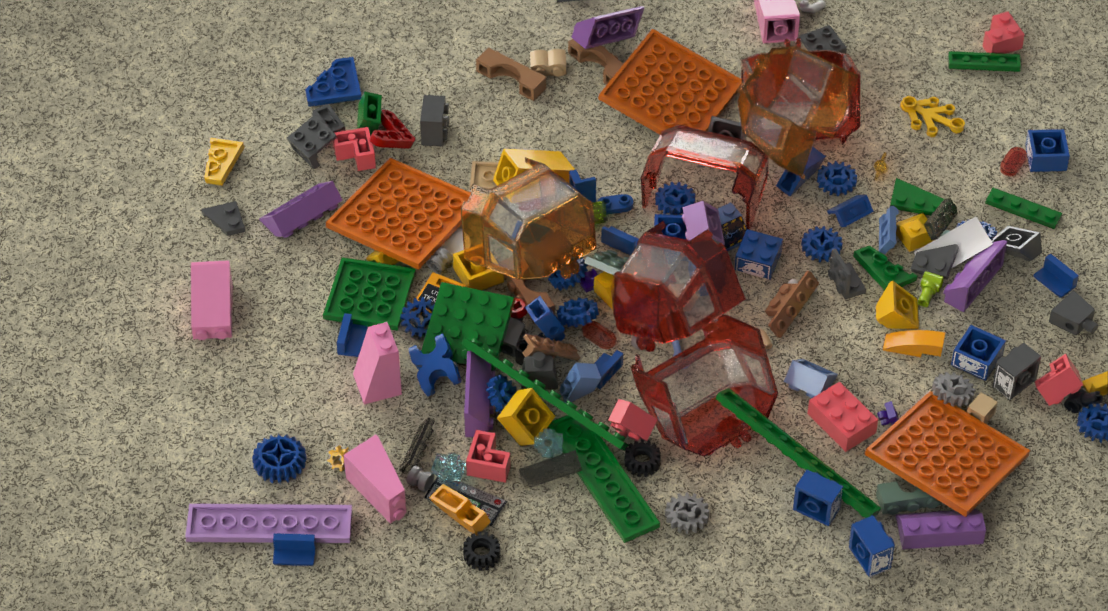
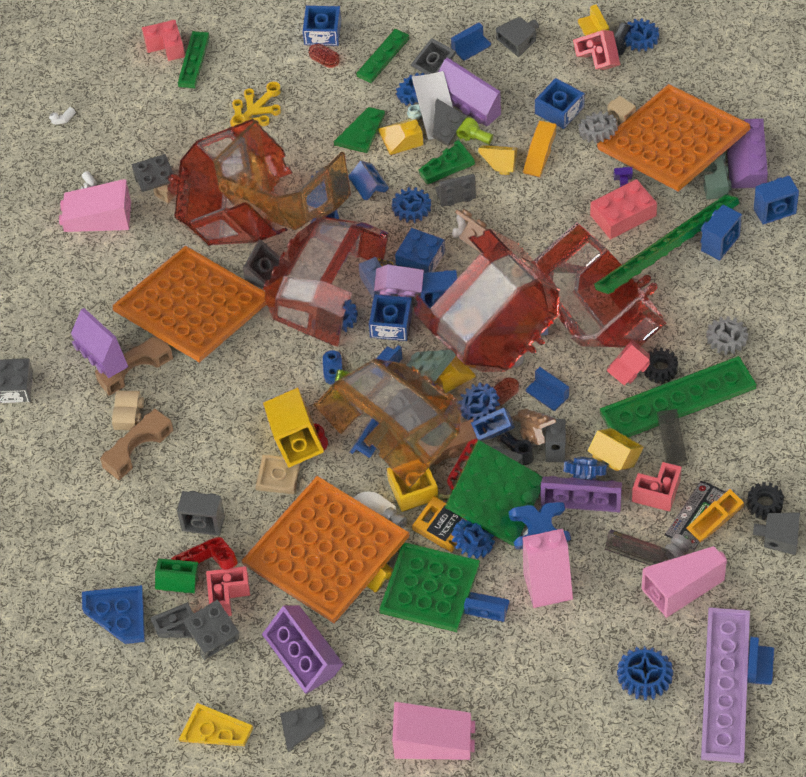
camera: 80 degrees left, 5 degrees up
(334, 459) = (649, 616): yellow gear -> none
(443, 563) = (780, 532): none -> dark grey torso
(448, 467) = (670, 519): clear light blue brick -> none
(552, 396) = (587, 432): green plate -> none
(555, 448) = (648, 431): clear light blue brick -> none
(580, 381) = (571, 405): medium blue slope -> none
(586, 186) = (317, 386): blue panel -> none
(809, 377) = (582, 216): medium blue slope -> none
(880, 166) = (318, 151): clear yellow piece -> none
(887, 230) = (403, 152): medium blue plate -> none
(941, 218) = (398, 108): clear smoke plate -> none
(1016, 371) = (587, 77): dark grey brick -> none

